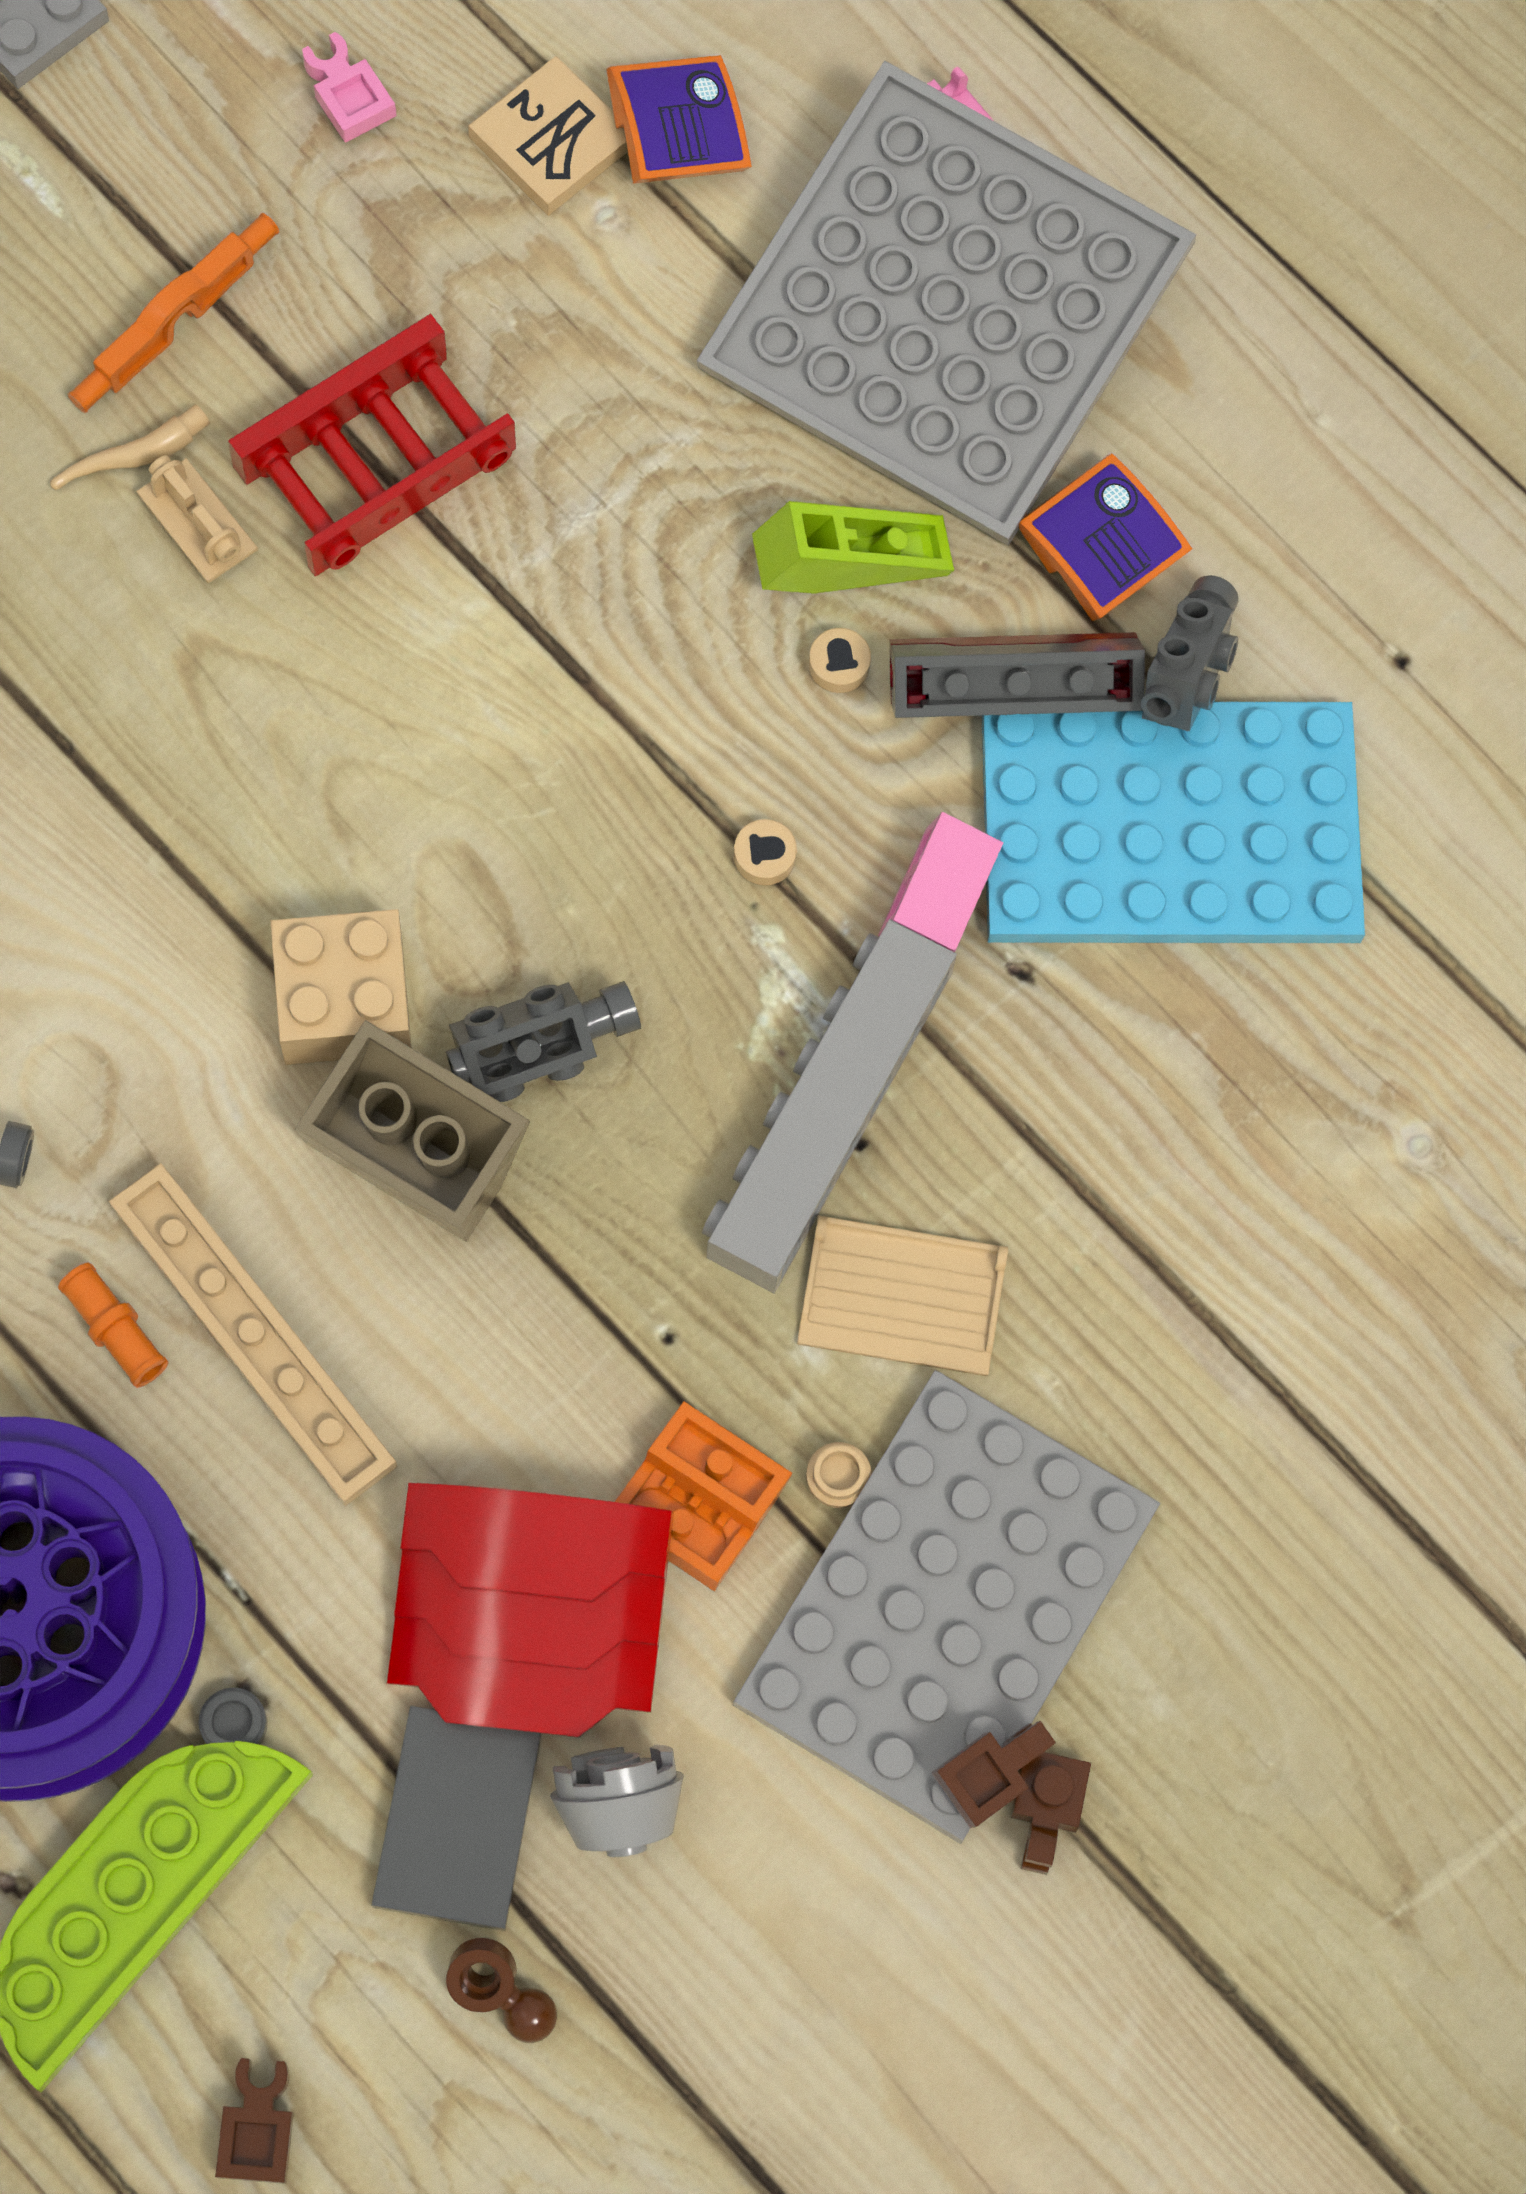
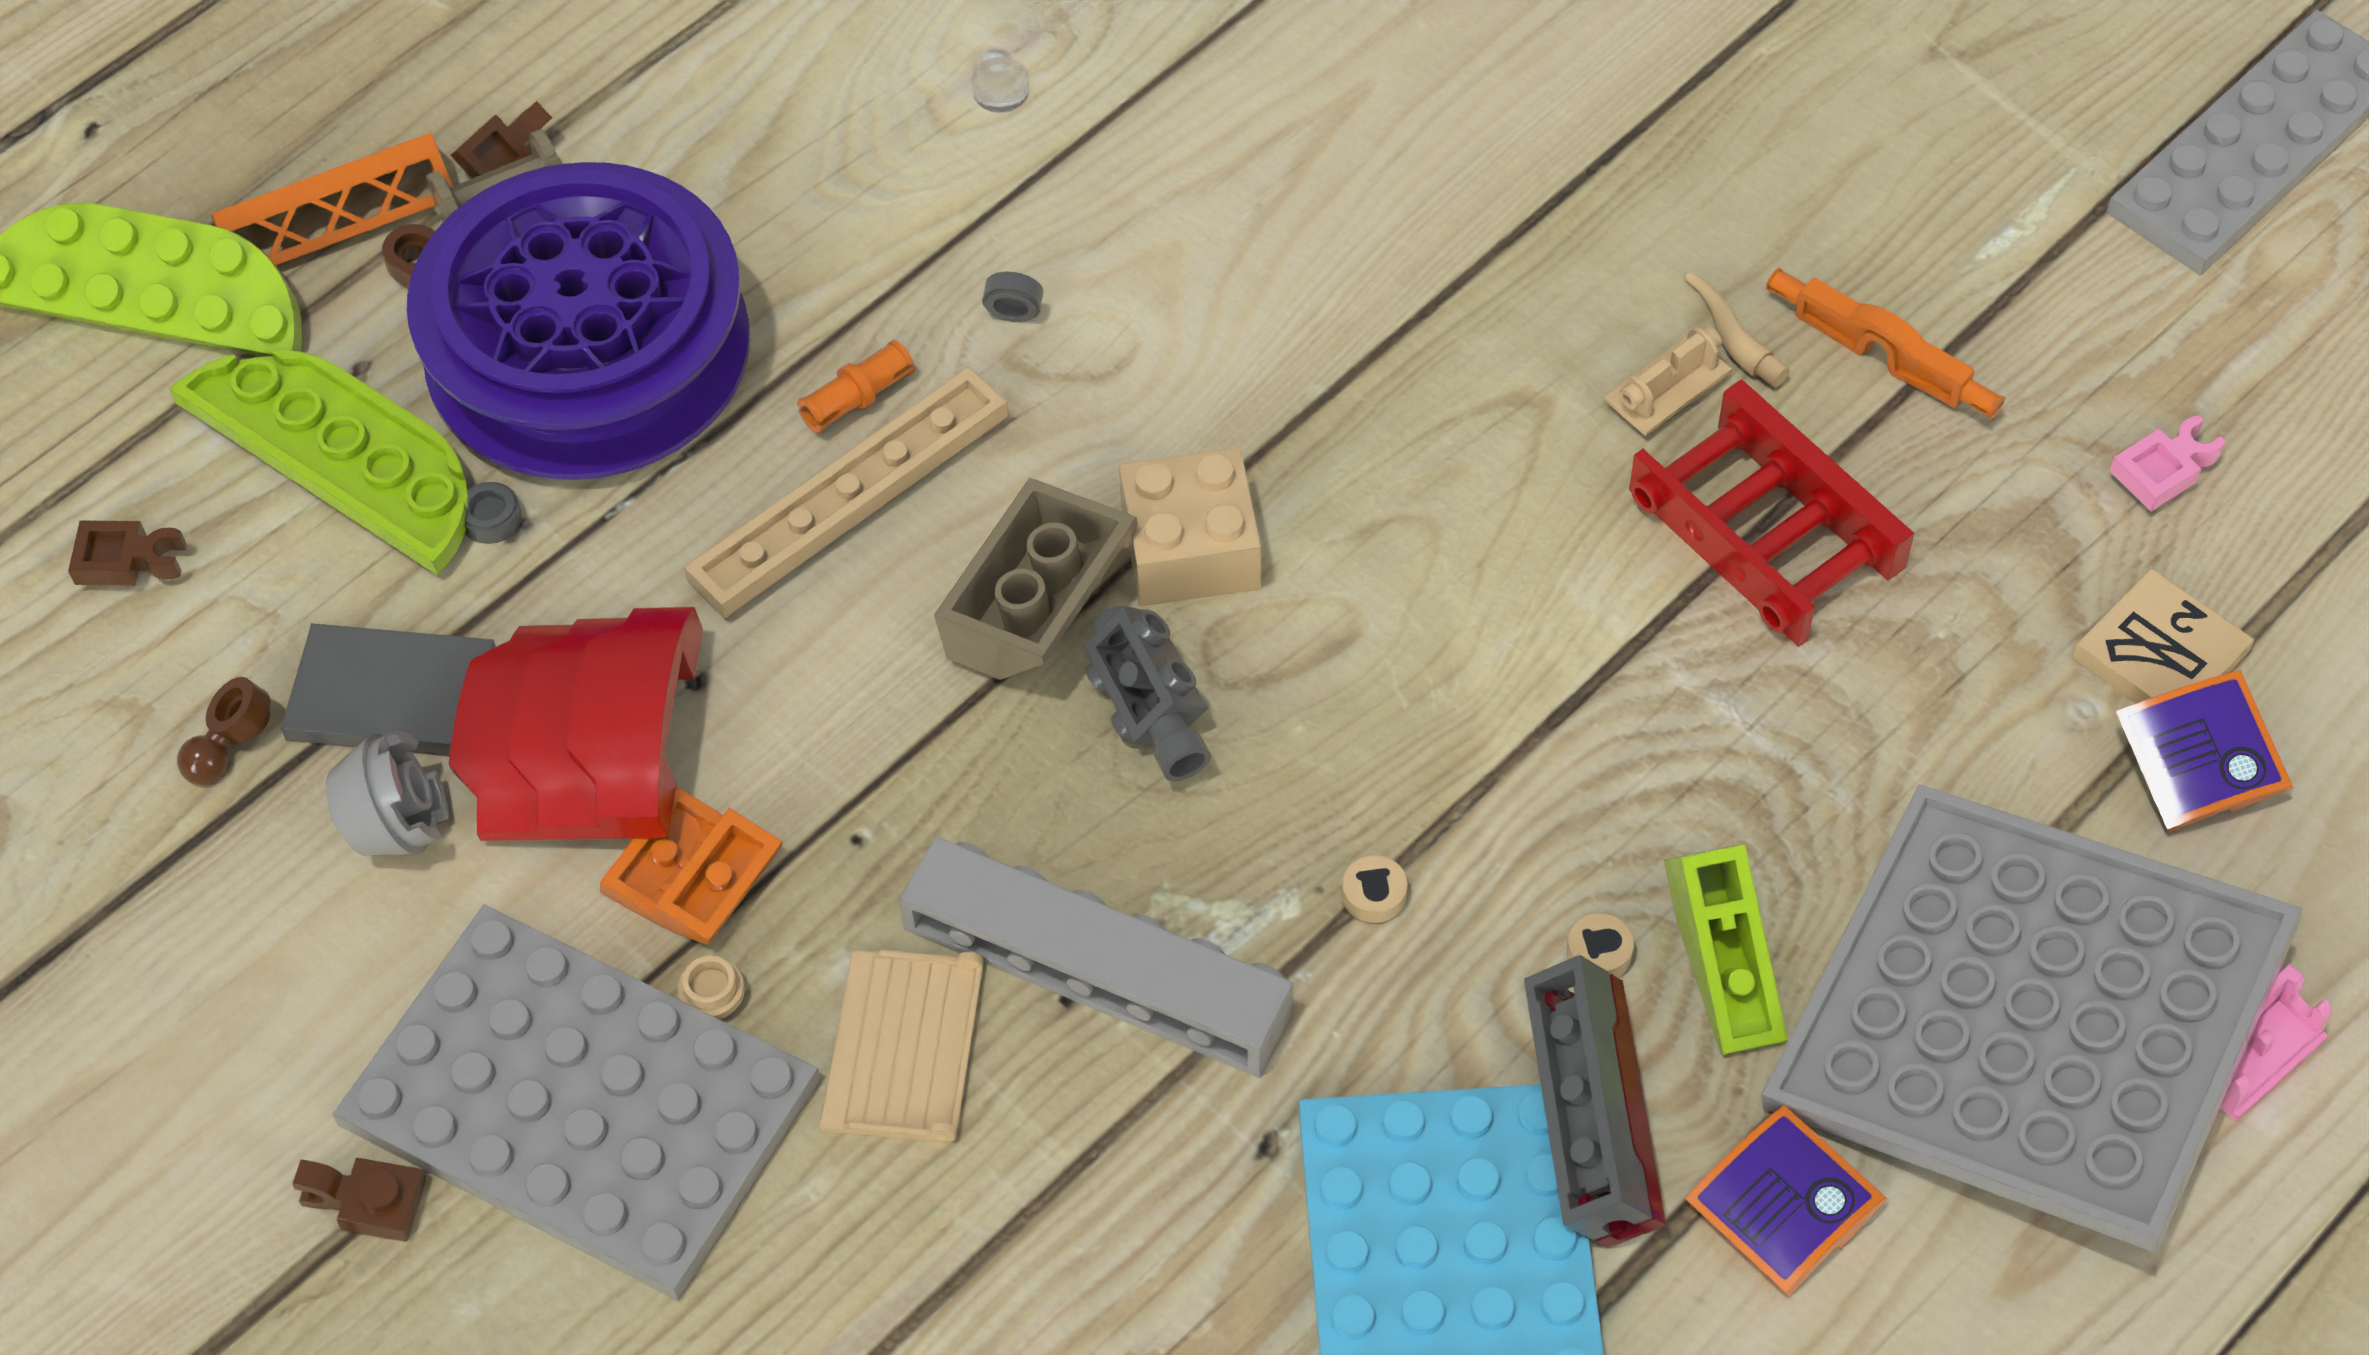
camera: 95 degrees right, 15 degrees down
(944, 881) = (1346, 1043): bright pink hinge -> none
(987, 1776) = (382, 1113): reddish brown plate -> none
(1191, 655) = (1636, 1272): dark grey brick -> none

